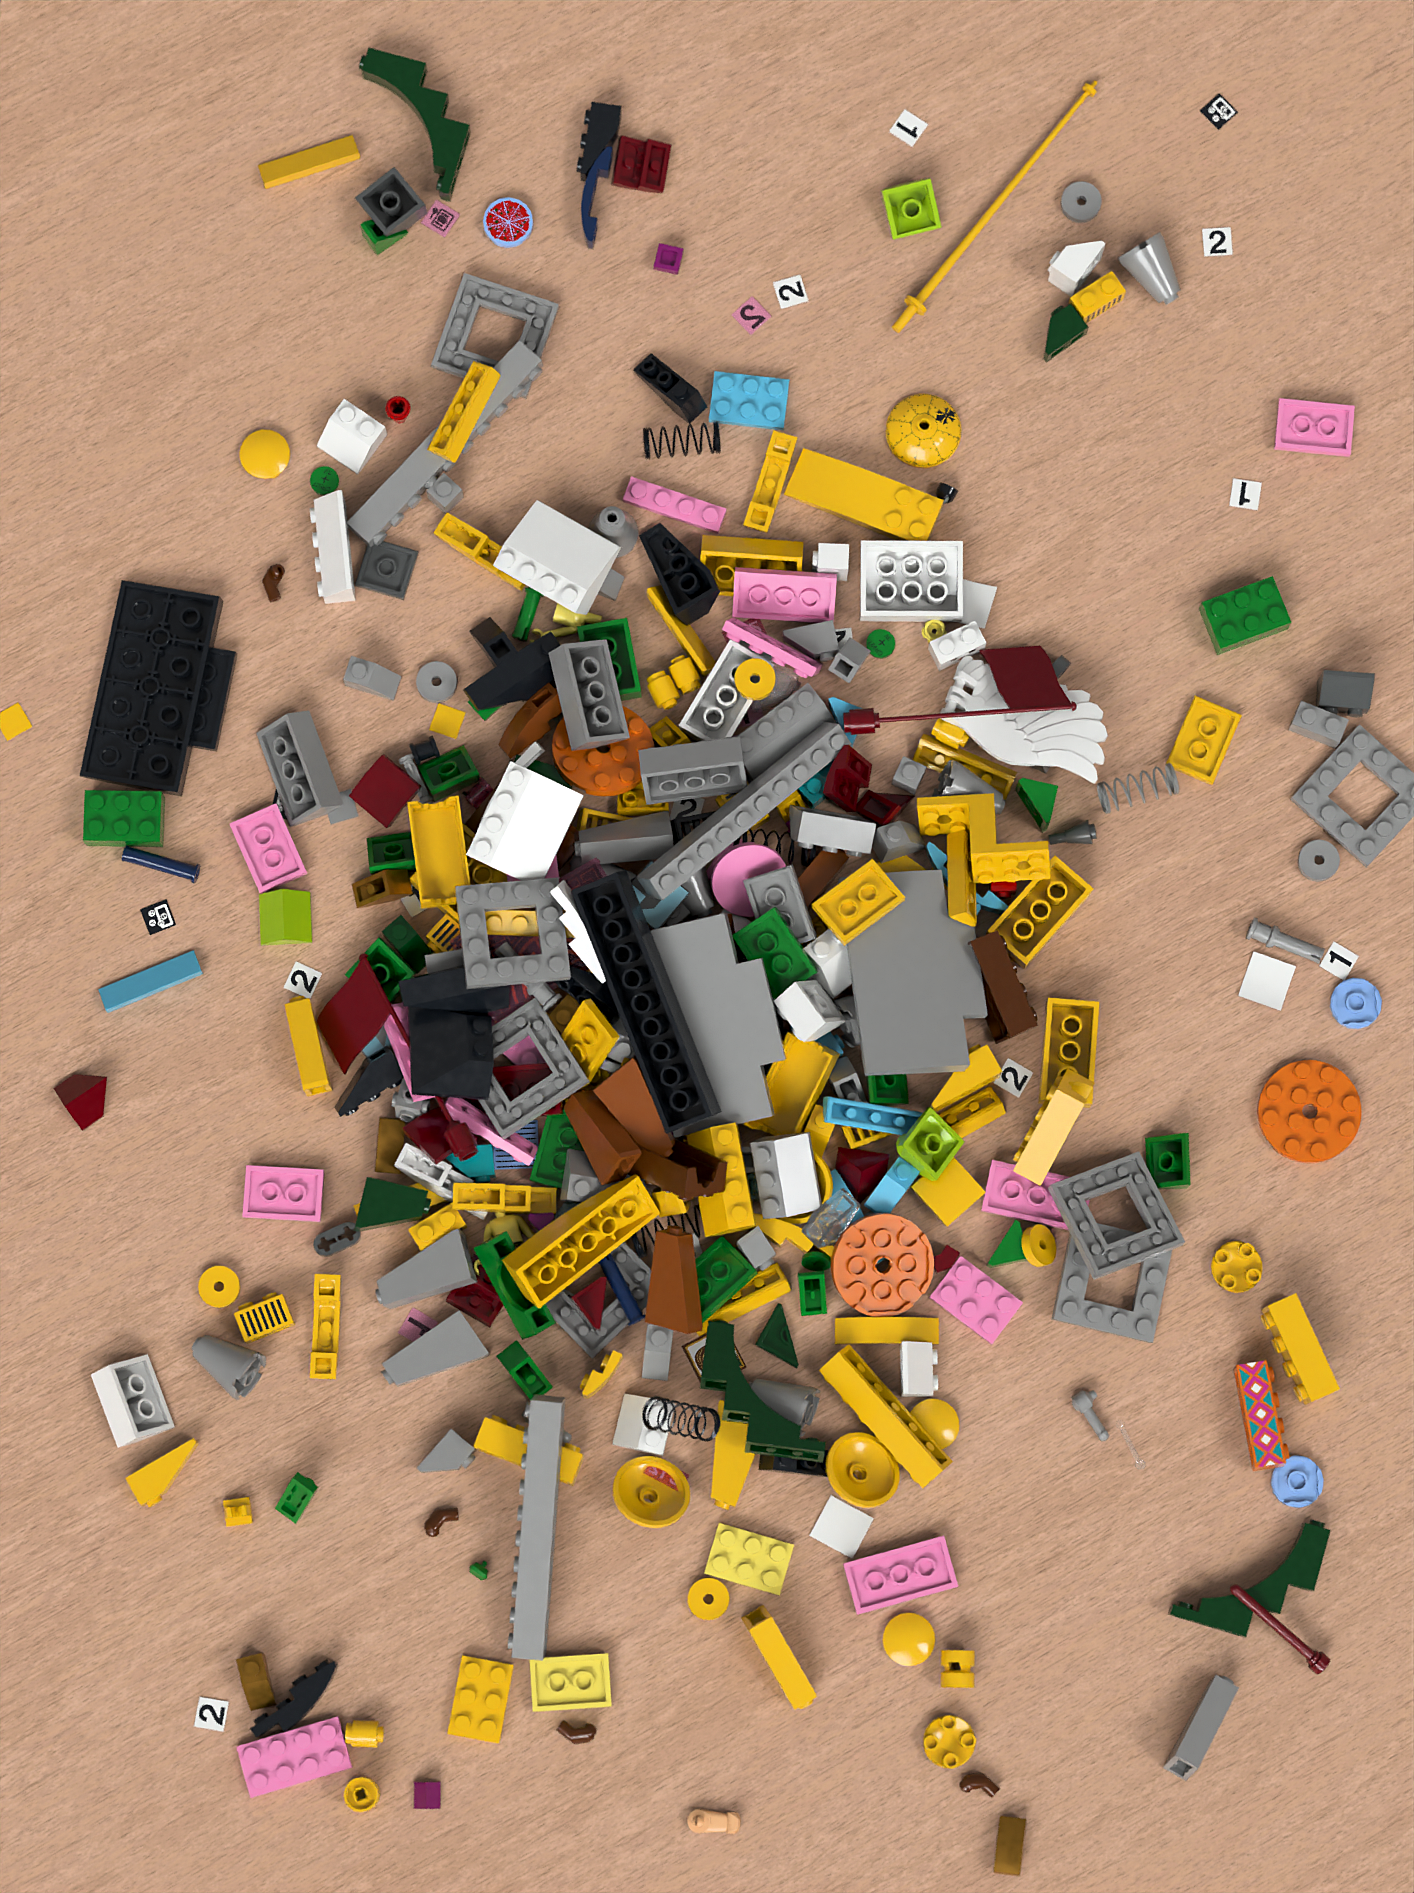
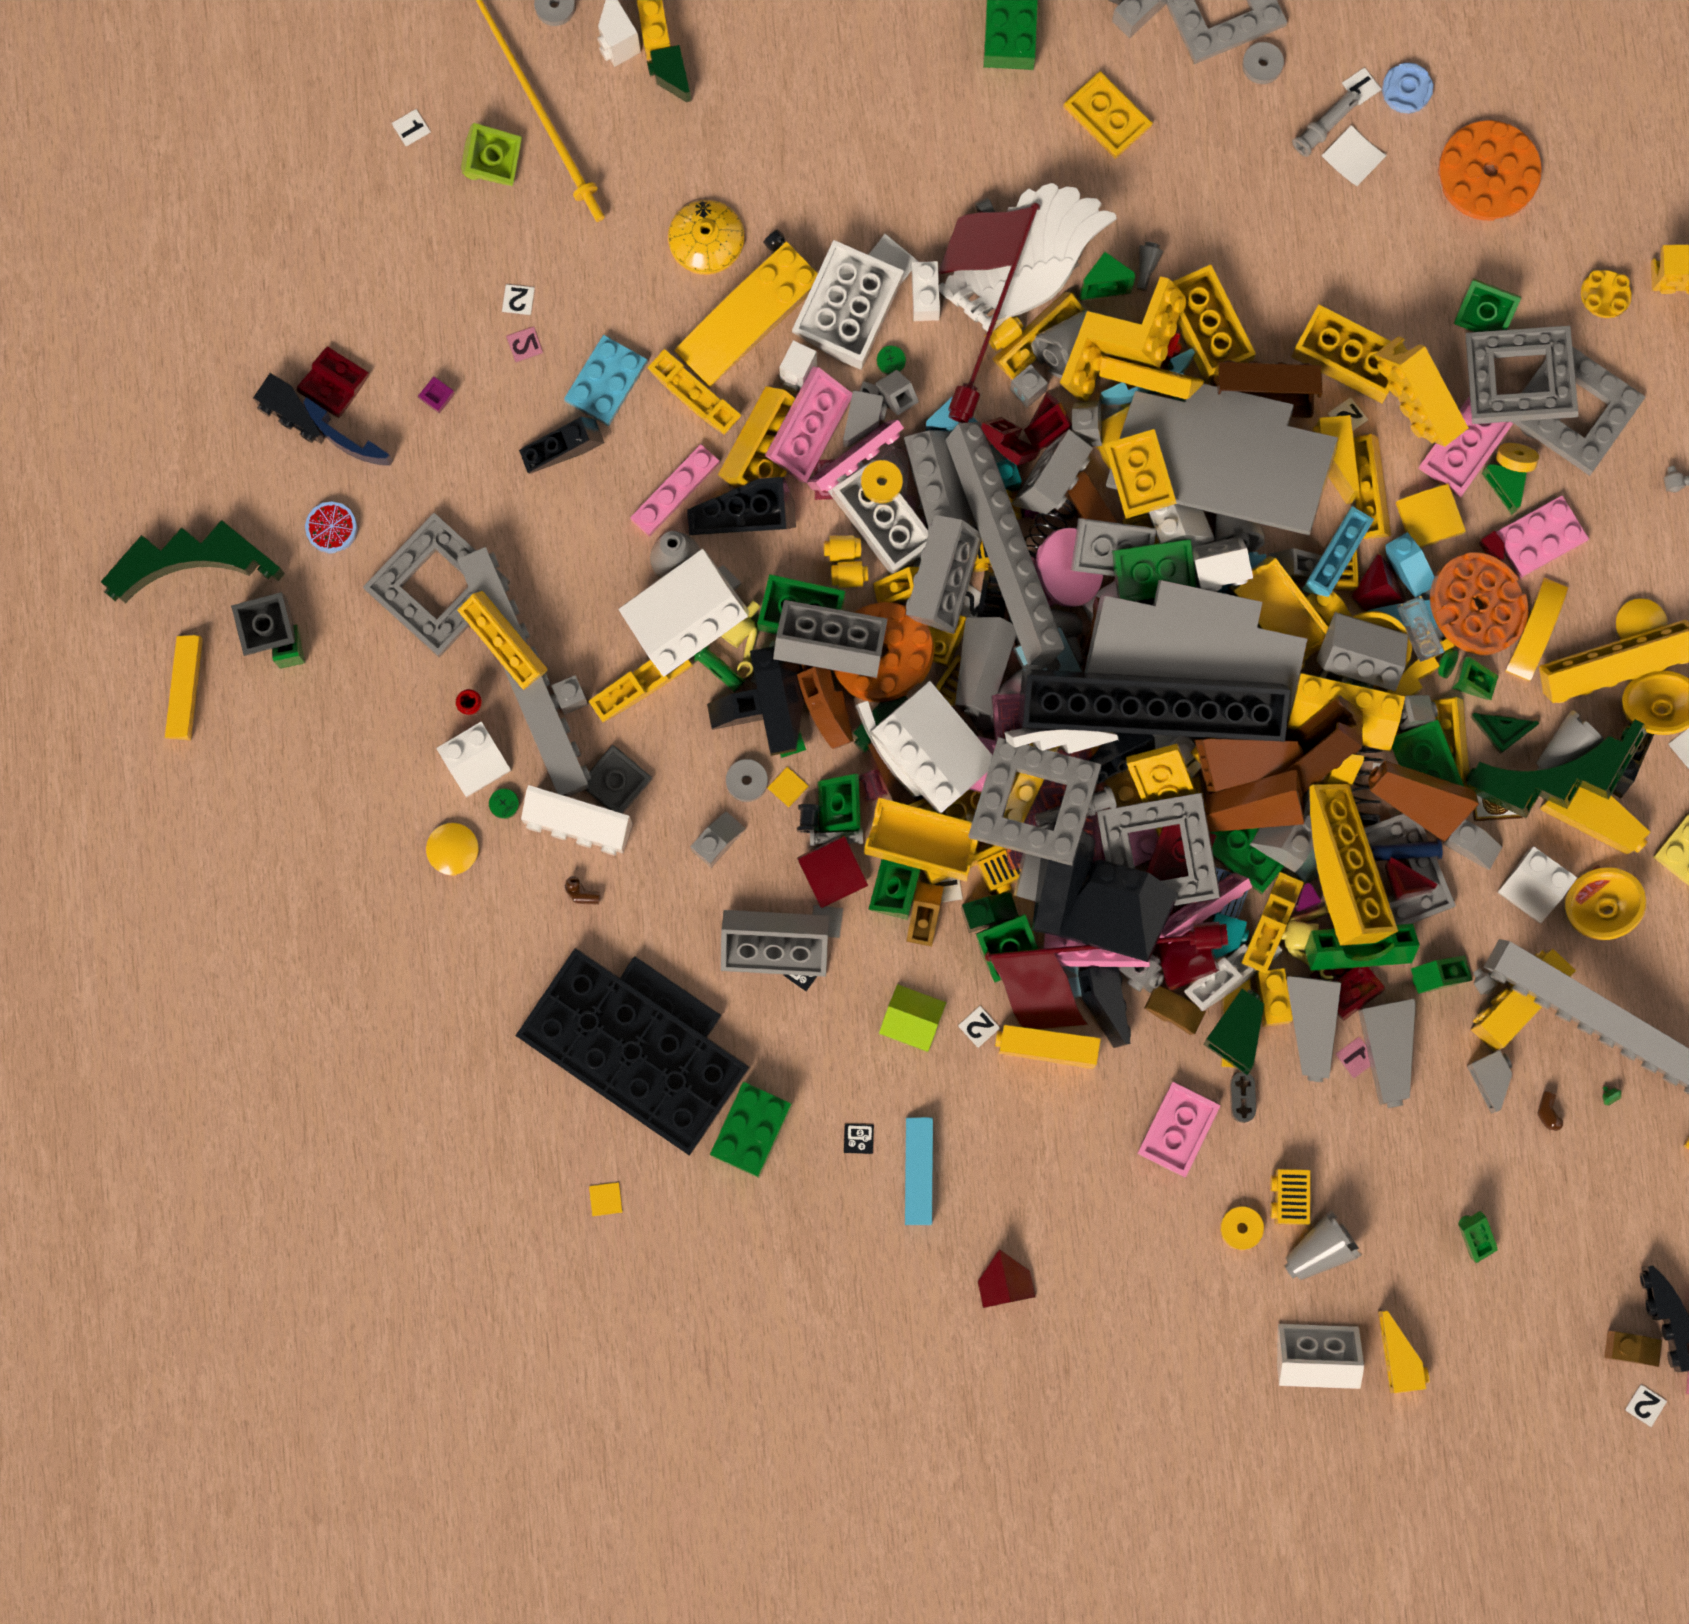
camera: 65 degrees left, 0 degrees up
(161, 863) = (809, 1113): dark blue pin -> none
(238, 1512) = (1464, 1300): yellow tile -> none
(268, 848) = (839, 1005): bright pink plate -> none
(326, 1326) = (1323, 1143): yellow slope -> none
(440, 218) = (297, 589): clear pink sticker -> none
(596, 1381) = (1483, 912): yellow slope -> none
(684, 634) = (801, 534): yellow slope -> none
(696, 1419) = (1566, 853): black piece -> none
(716, 440) = (636, 429): black piece -> none
(887, 1089) = (1313, 543): green slope -> none
(917, 1369) = (1588, 616): white slope -> none
(929, 1145) = (1387, 513): lime slope -> none
(938, 625) = (901, 300): light yellow plate -> none
(1170, 780) = (1135, 161): light grey piece -> none

